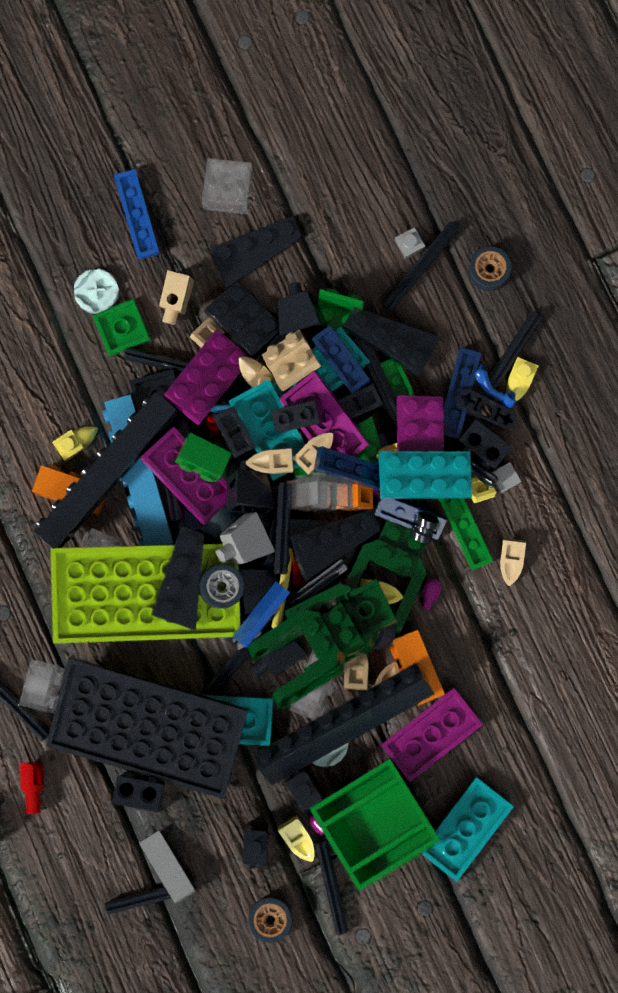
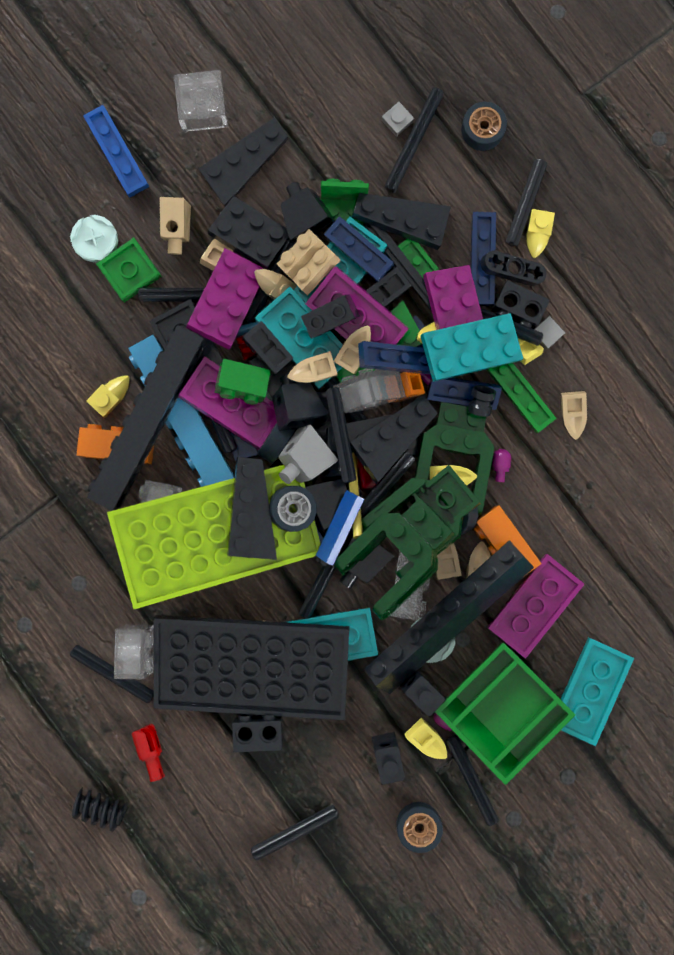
camera: 20 degrees left, 5 degrees up
(167, 867) = (304, 800): light grey tile -> none
(506, 399) = (505, 240): blue piece -> none

